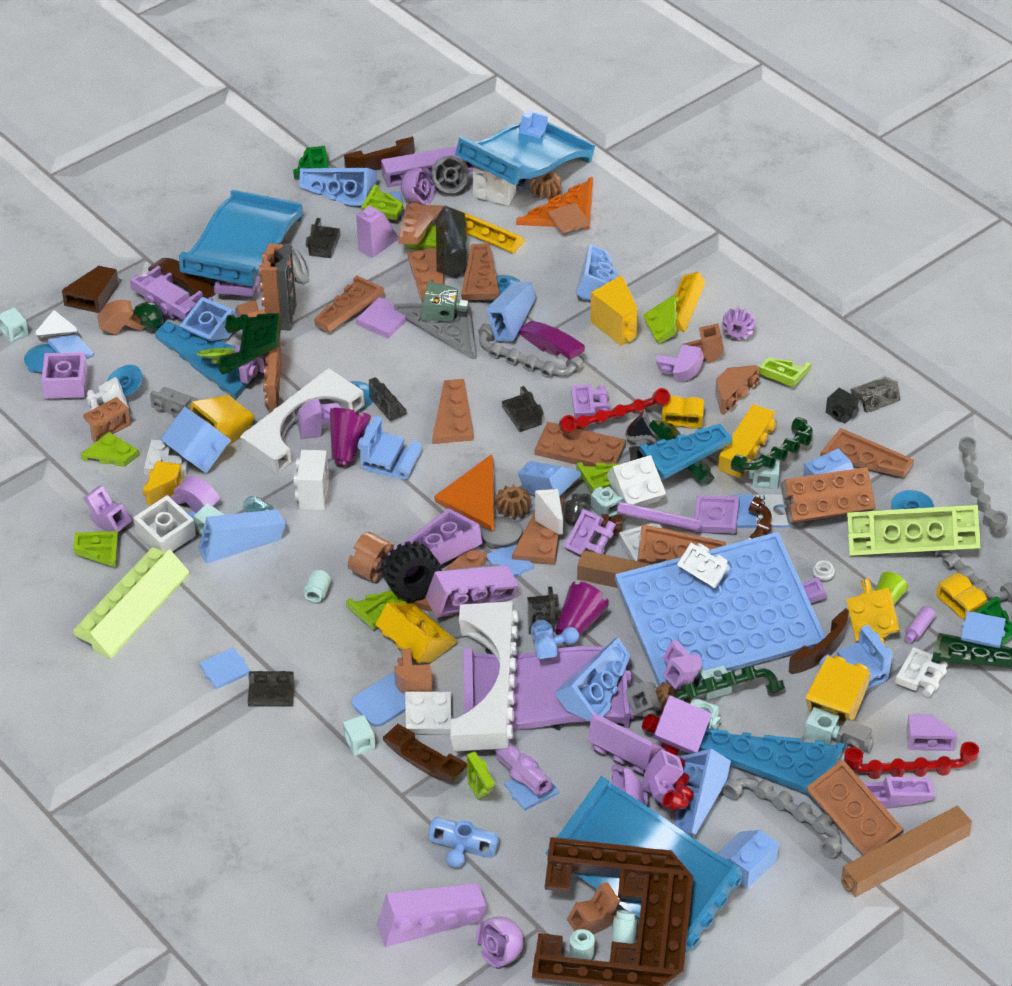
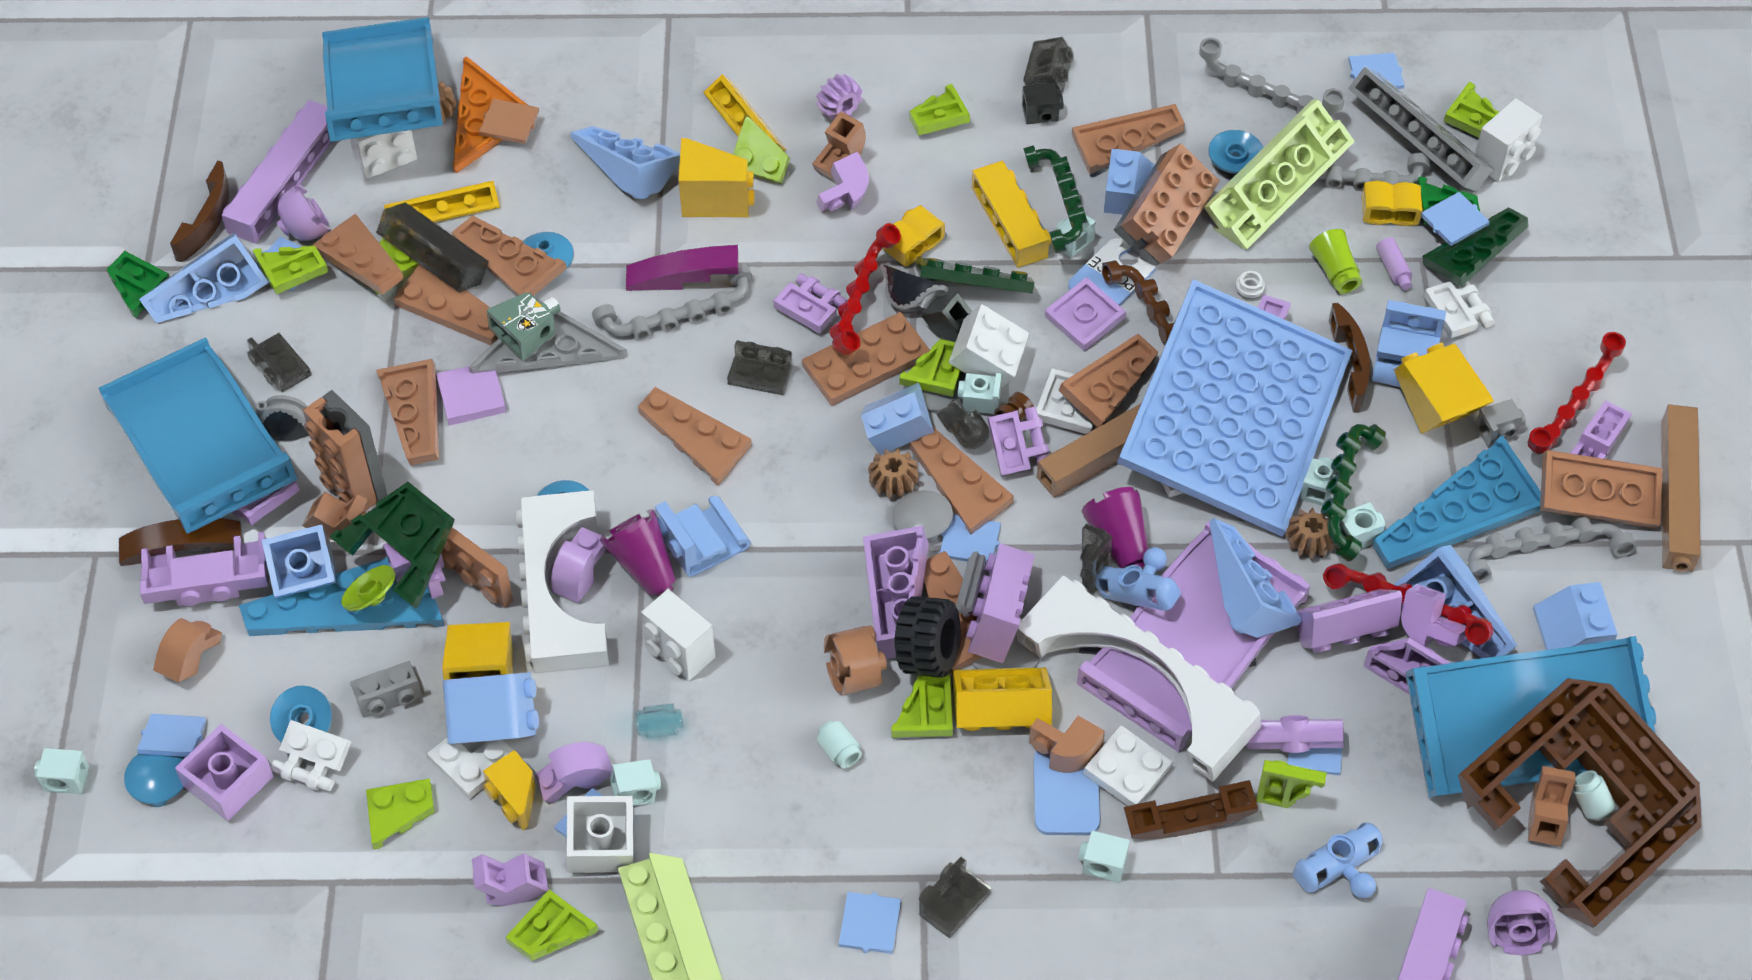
camera: 50 degrees left, 10 degrees up
(55, 326) = (119, 726): white slope -> none
(91, 290) = (97, 646): reddish brown slope -> none
(108, 417) = (348, 775): nougat bracket -> none
(150, 314) = (217, 611): dark green hair -> none
(239, 532) = (684, 766): light blue slope -> none
(374, 232) = (336, 305): lavender slope -> none
(385, 400) = (616, 481): clear smoke bracket -> none
(449, 174) = (322, 171): light grey cylinder -> none
(472, 494) = (845, 504): orange tile -> none
(510, 310) = (604, 269): light blue slope -> none
(533, 124) = (348, 41): light blue panel -> none
(548, 510) = (959, 450): white slope -> none
(582, 944) = (1586, 851): light aqua brick -> none
(639, 695) = (1291, 552): light grey brick -> none
(658, 516) = (1052, 363): lavender axle -> none
(681, 666) = (1298, 490): lavender brick -> none
(682, 725) = (1375, 550): lavender tile -> none
(686, 450) = (993, 269): dark azure wing -> none
(703, 565) = (1187, 372): white bracket -> none
(734, 385) = (920, 169): nougat slope -> none
(822, 726) = (1461, 437): light aqua brick -> none
(873, 609) = (1360, 286): yellow plate -> none
(929, 733) = (1544, 360): lavender slope -> none

